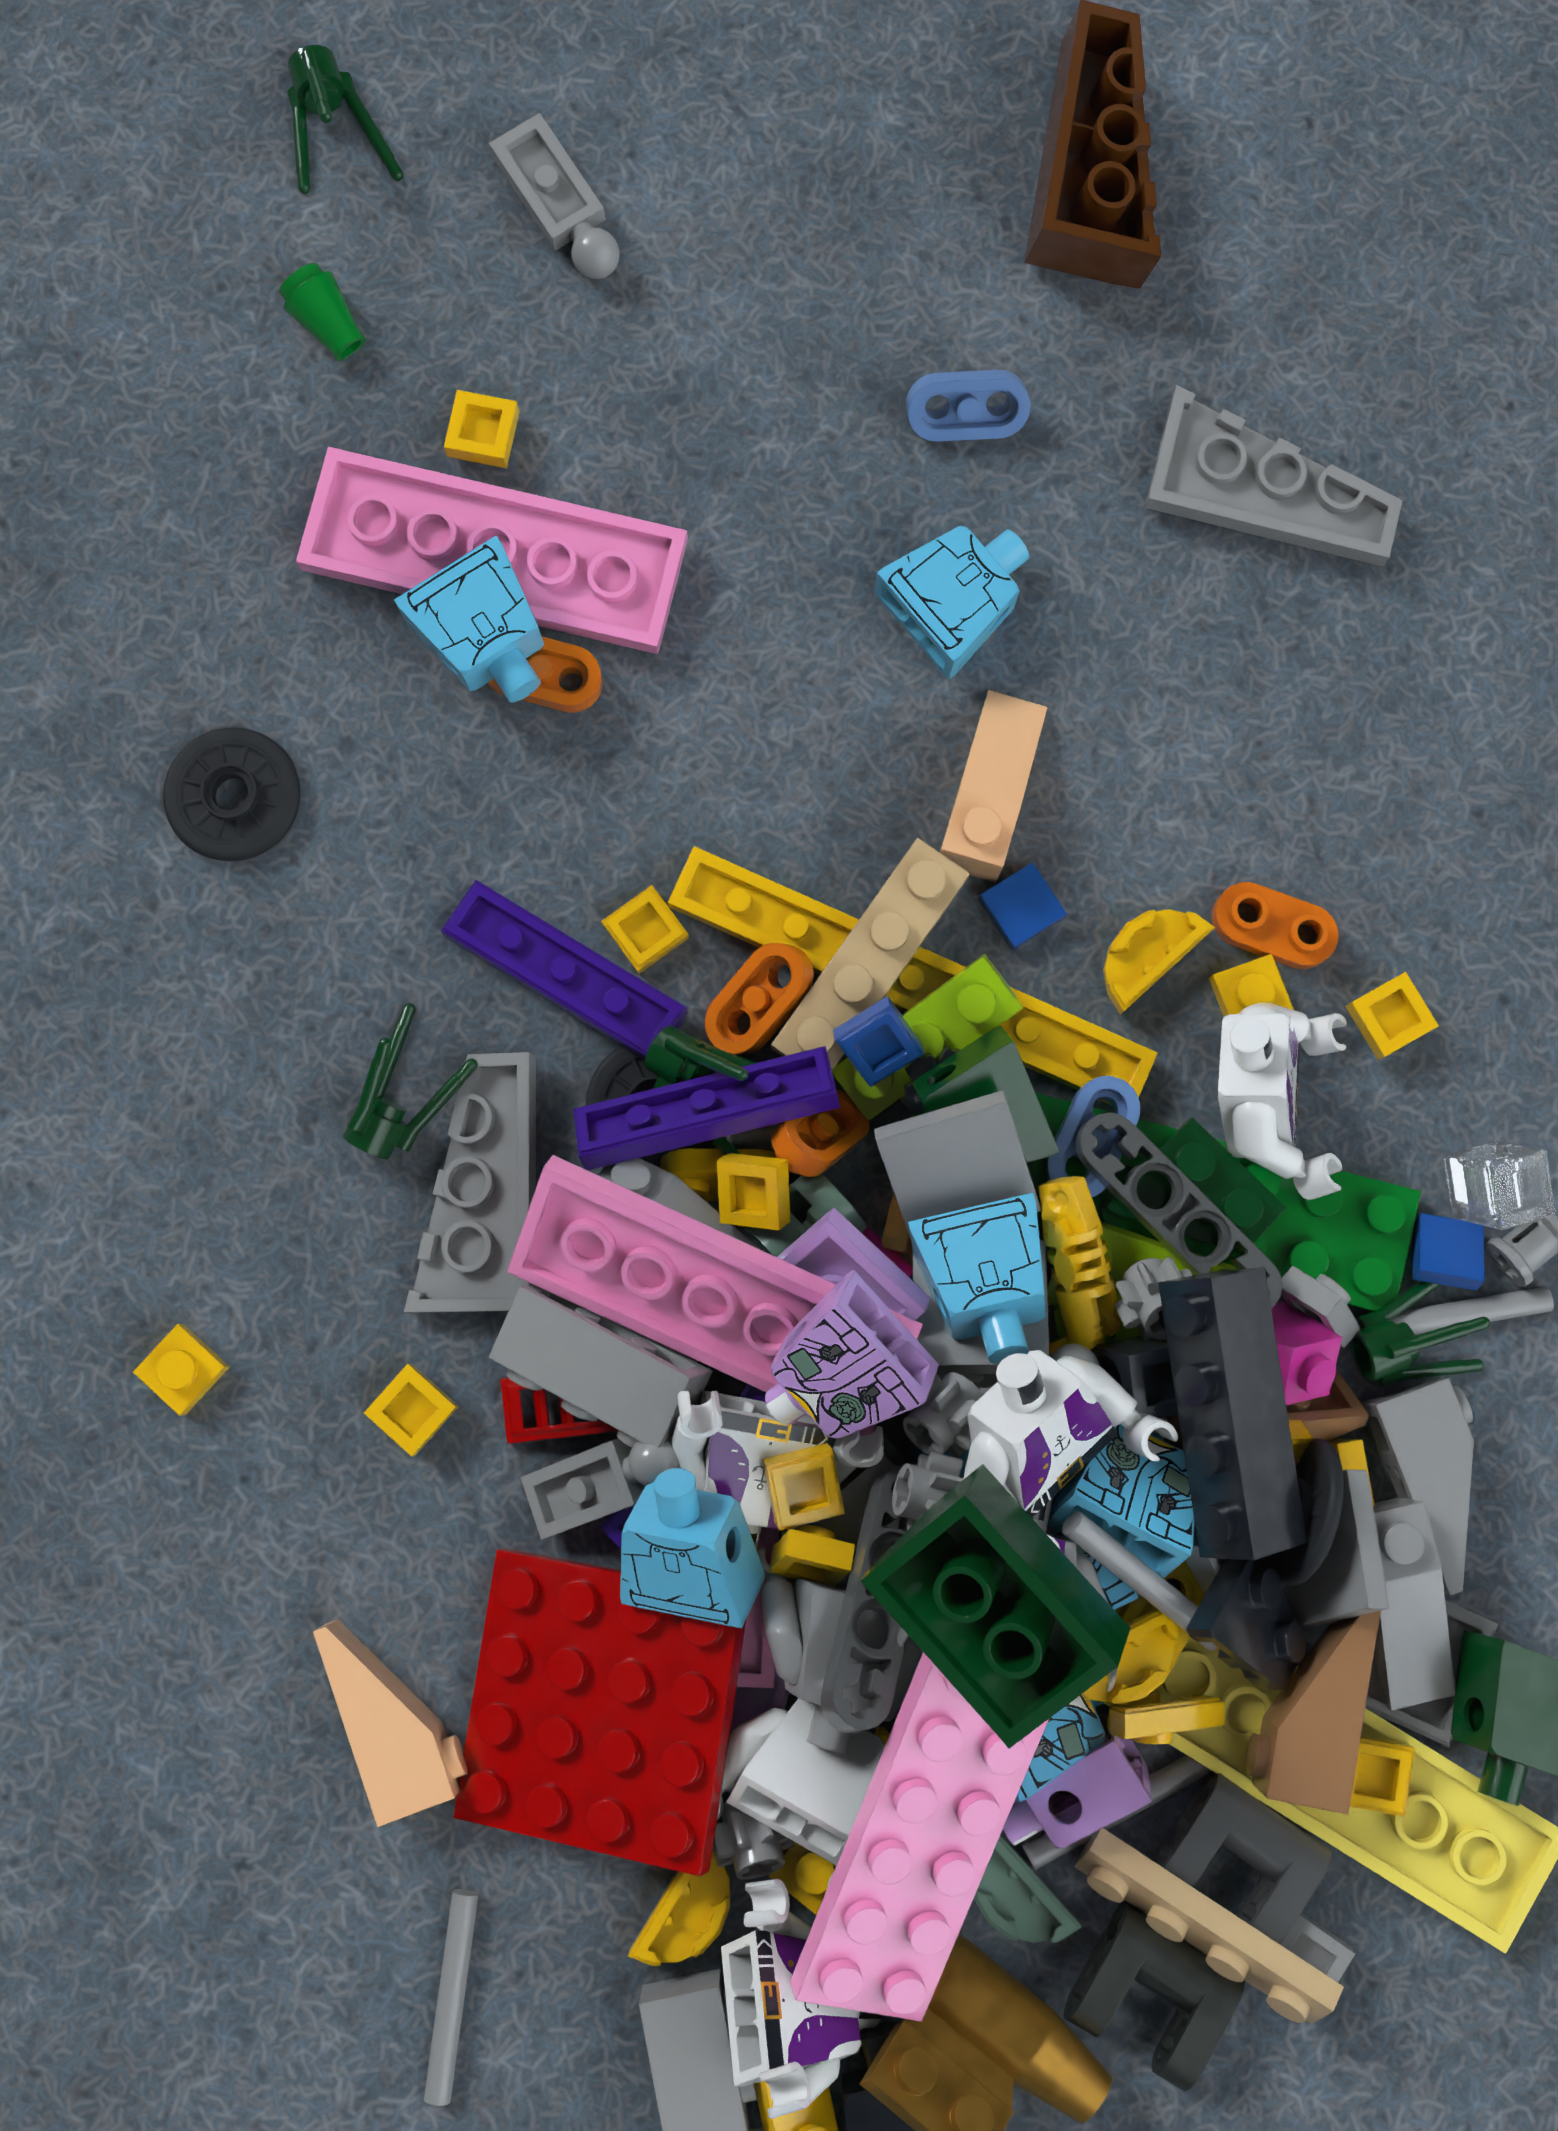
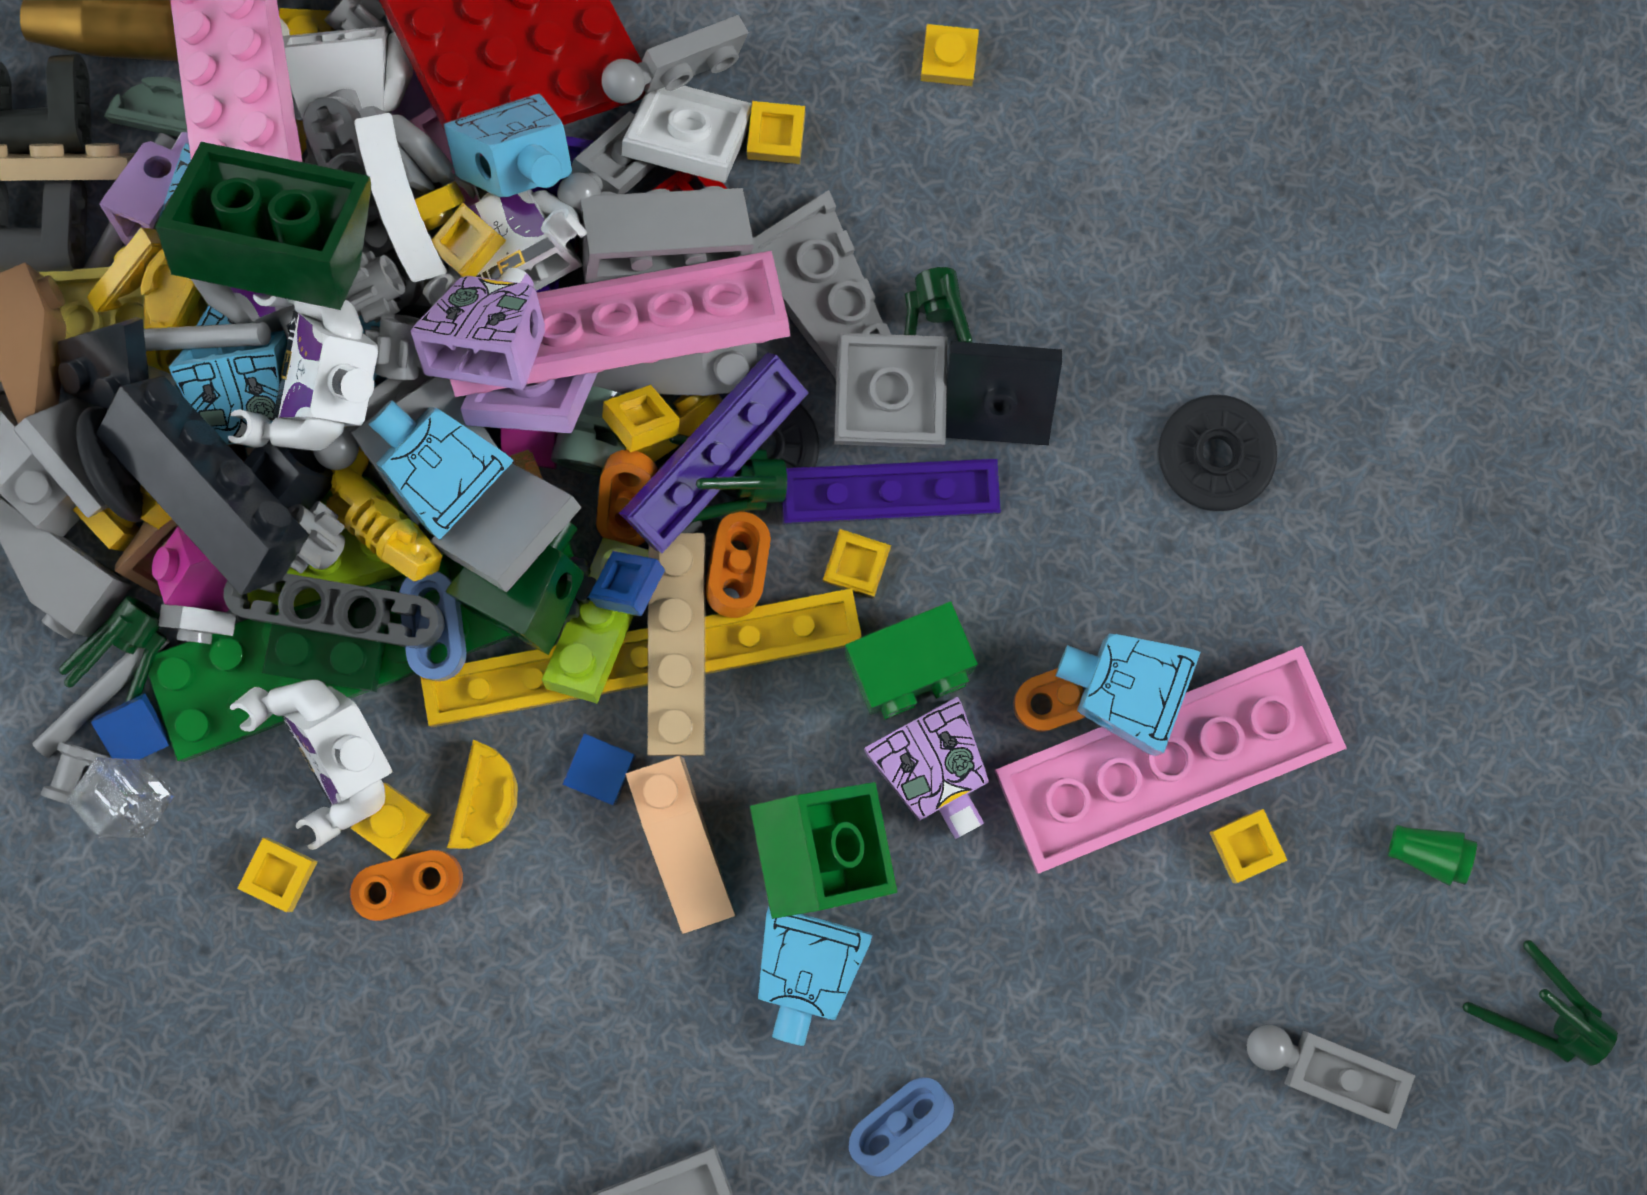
camera: 150 degrees right, 0 degrees up
(390, 981) = (1001, 392): none -> black plate
(493, 1054) = (891, 390): none -> light grey plate
(497, 1470) = (688, 131): none -> white plate
(522, 1559) = (676, 61): none -> light grey plate
(662, 786) = (911, 660): none -> green brick
(709, 690) = (934, 766): none -> lavender torso
(849, 1559) = (395, 199): none -> white sticker
(868, 673) = (823, 849): none -> green brick

